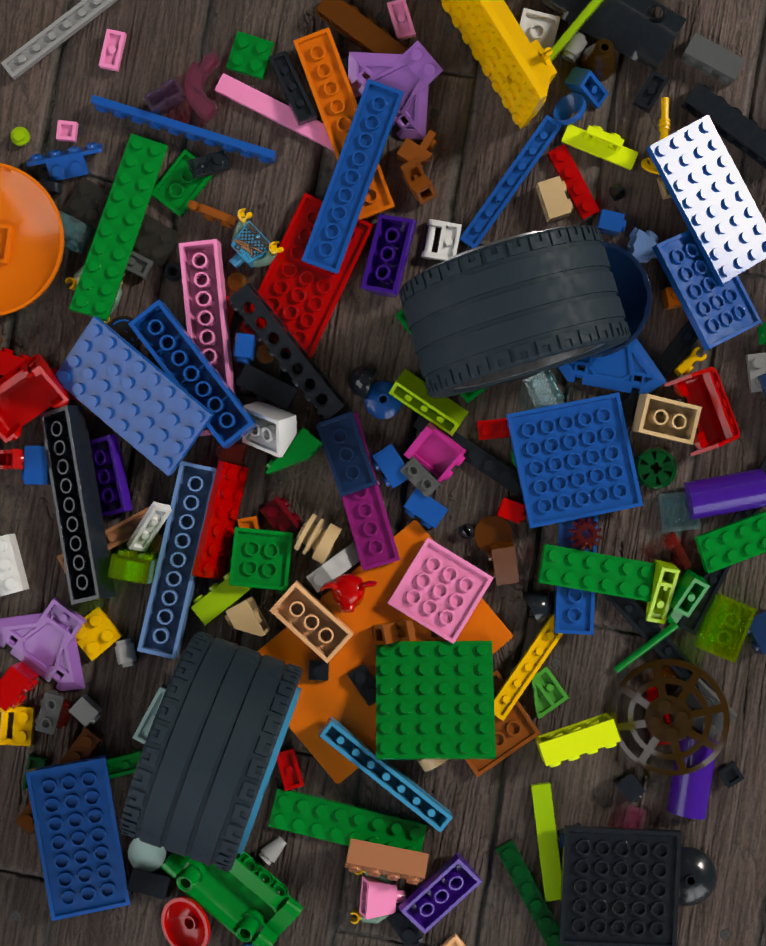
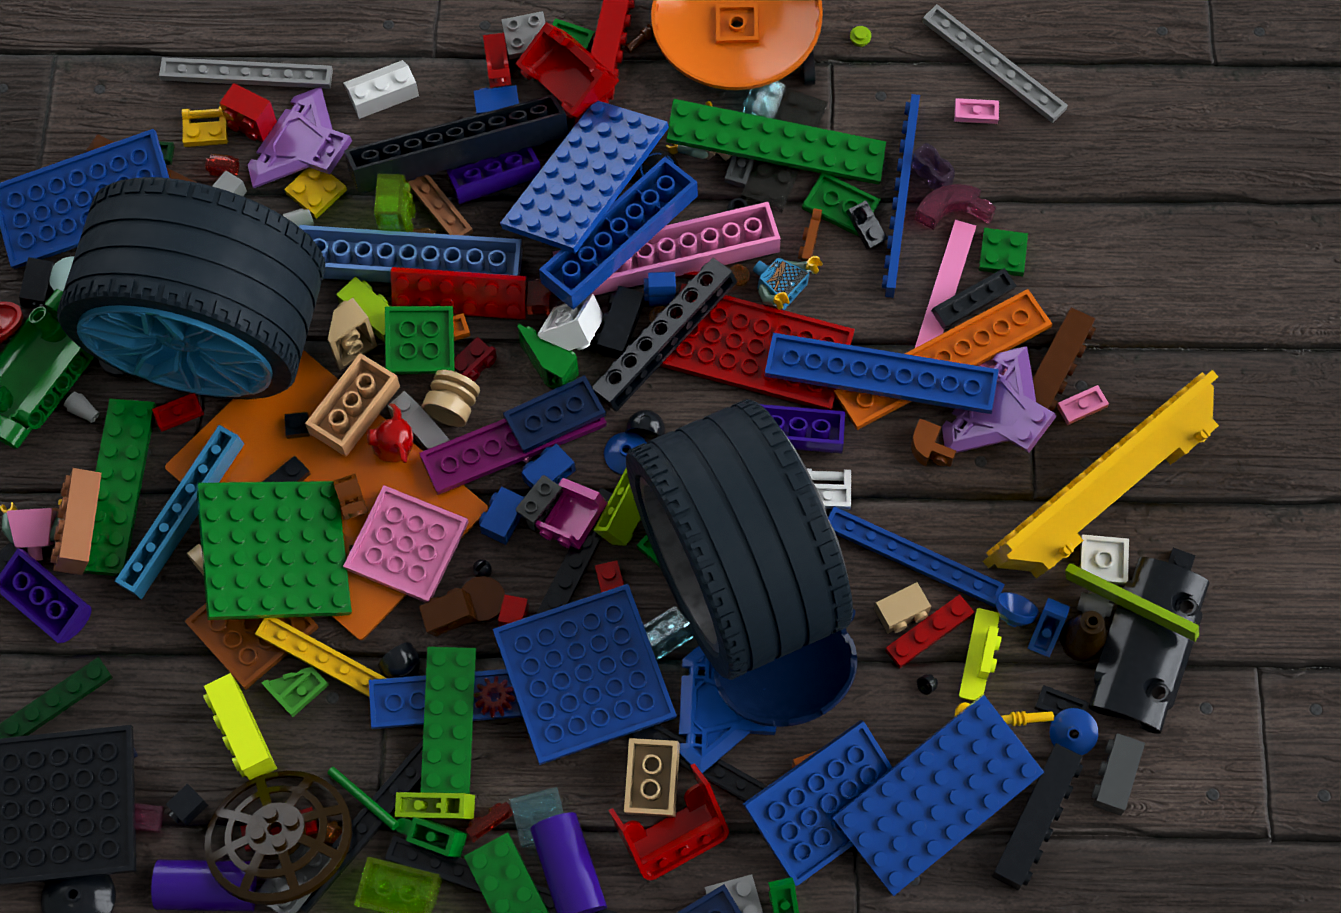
camera: 80 degrees right, 20 degrees down
(50, 710) = (222, 151): dark grey bracket -> none
(66, 163) = (839, 83): blue bracket -> none
(67, 131) = (875, 79): bright pink plate -> none
(149, 526) = (442, 219): white plate -> none
(417, 181) = (892, 449): dark orange brick -> none
(547, 840) = (126, 713): lime tile -> none
(611, 222) = (887, 679): blue brick -> none
(641, 244) = (872, 716): medium blue rock -> none
(664, 460) = (578, 771): dark green wheel -> none
(668, 85) = (1074, 719): none -> blue dish
(686, 365) = (727, 798): yellow plate -> none

